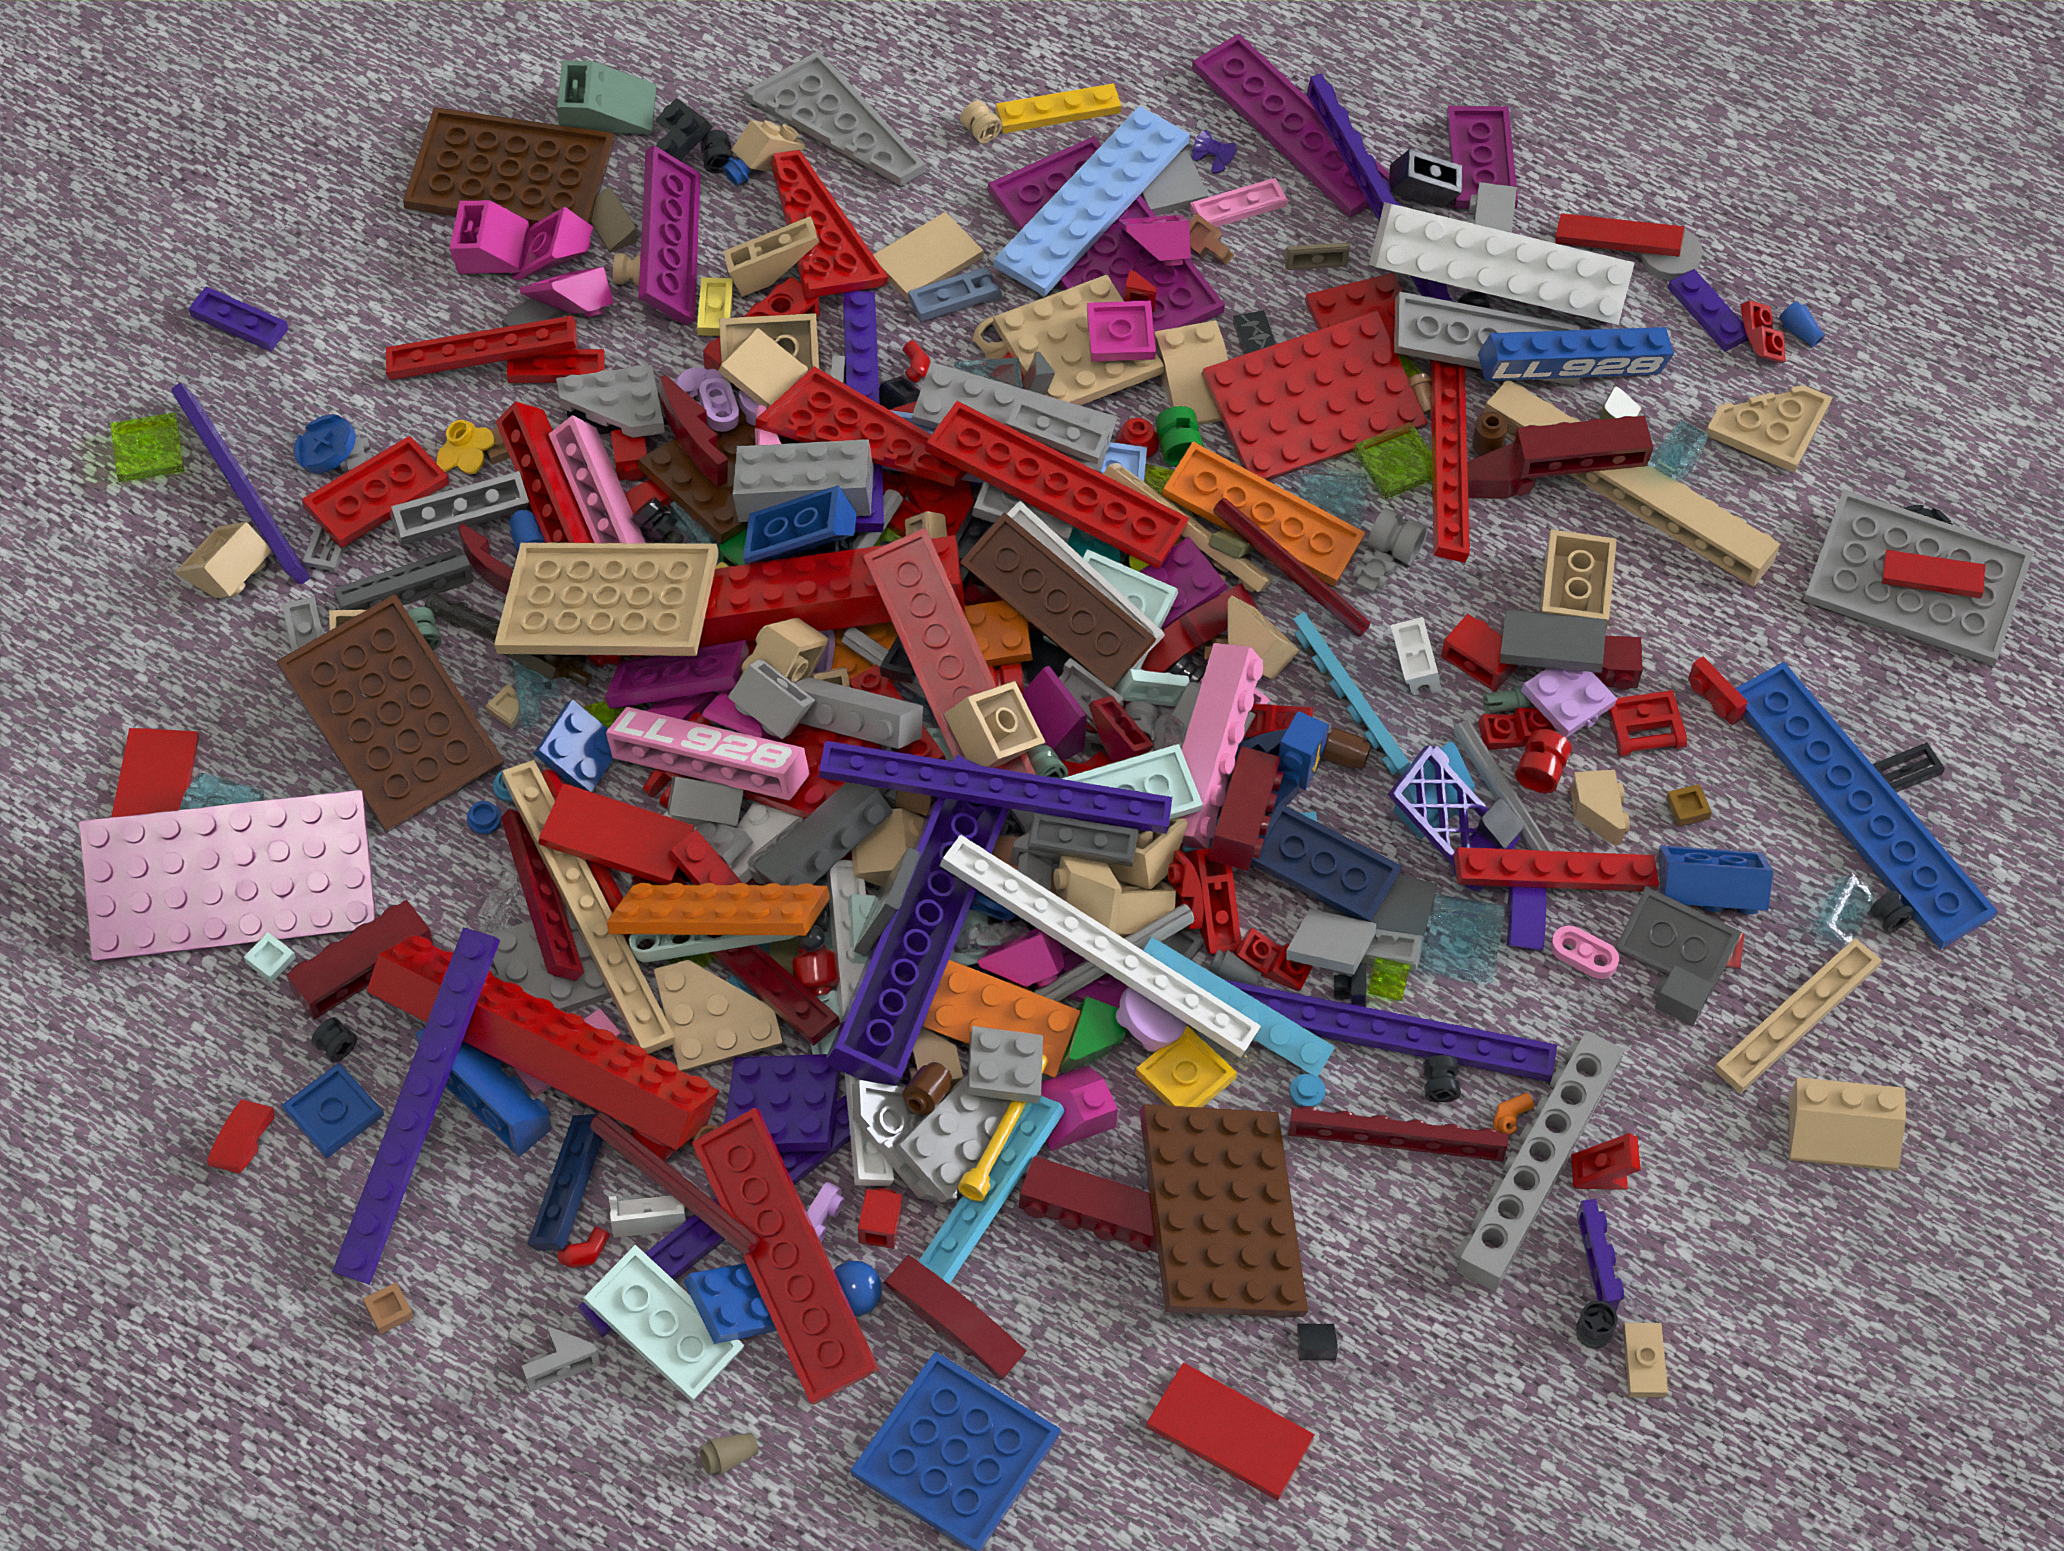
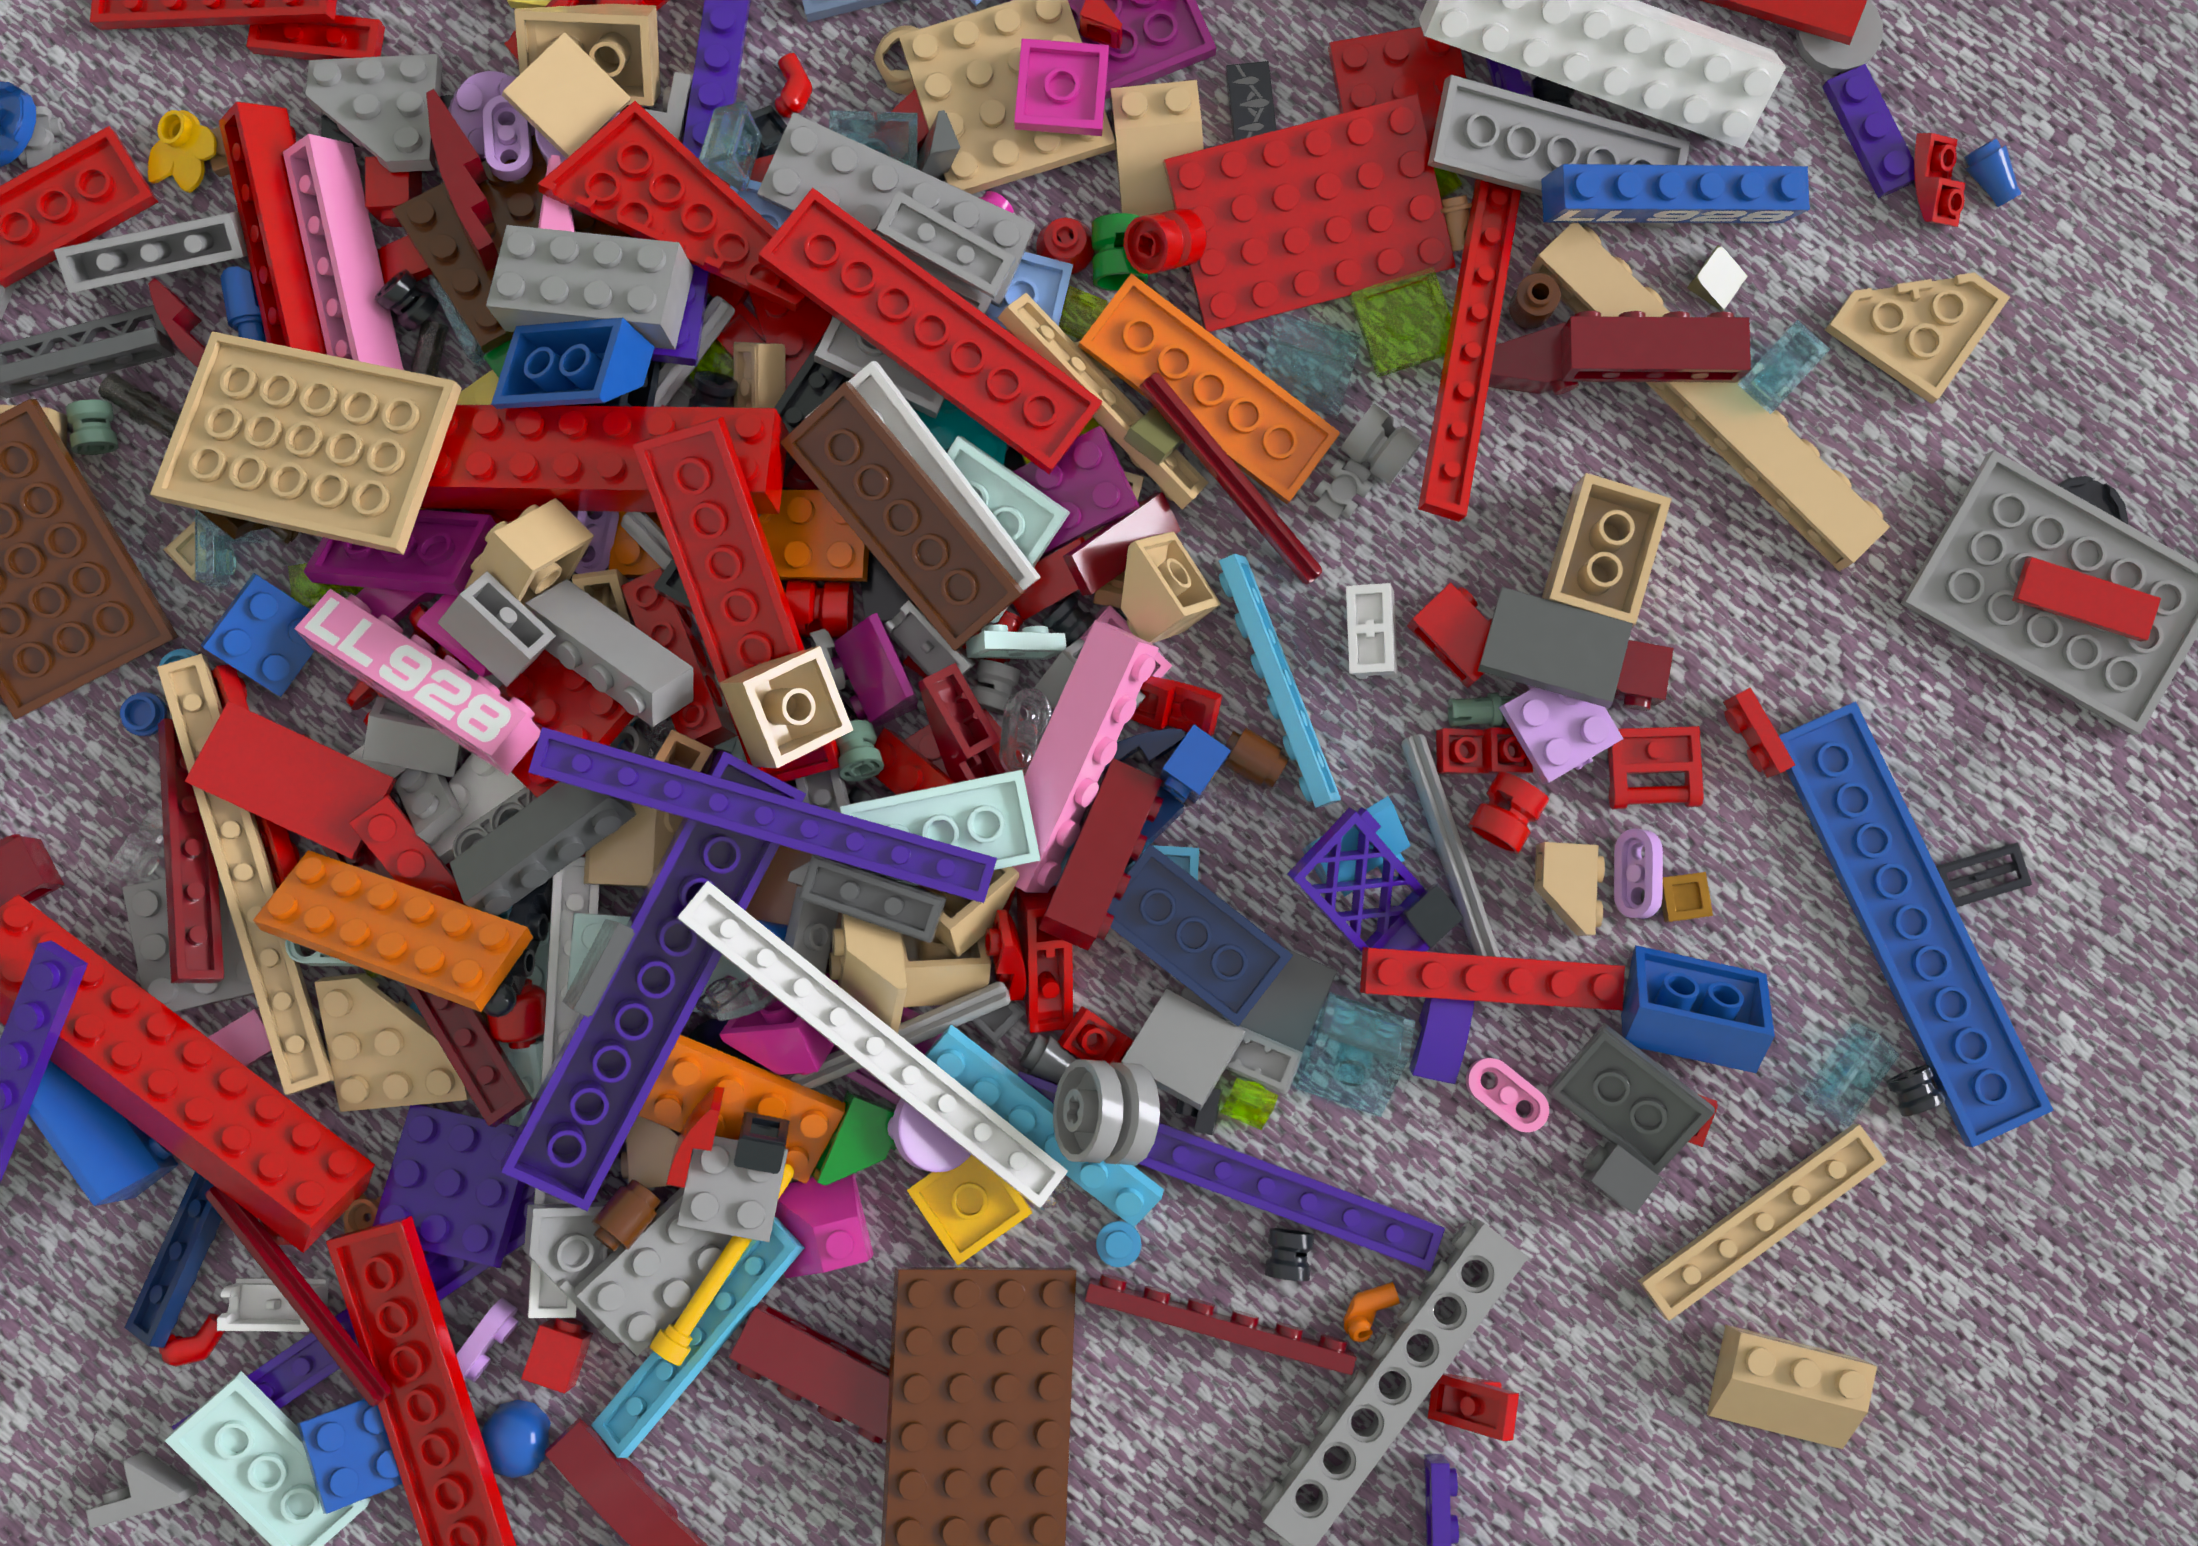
camera: 10 degrees right, 25 degrees up
(886, 389) = (731, 144): none -> clear light blue slope
(977, 1015) = (697, 1134): none -> red slope
(1024, 1027) = (761, 1143): none -> black slope
(1213, 418) = (1165, 241): none -> red wheel
(1283, 972) = (1106, 1112): none -> light grey wheel
(1649, 797) = (1637, 874): none -> lavender plate

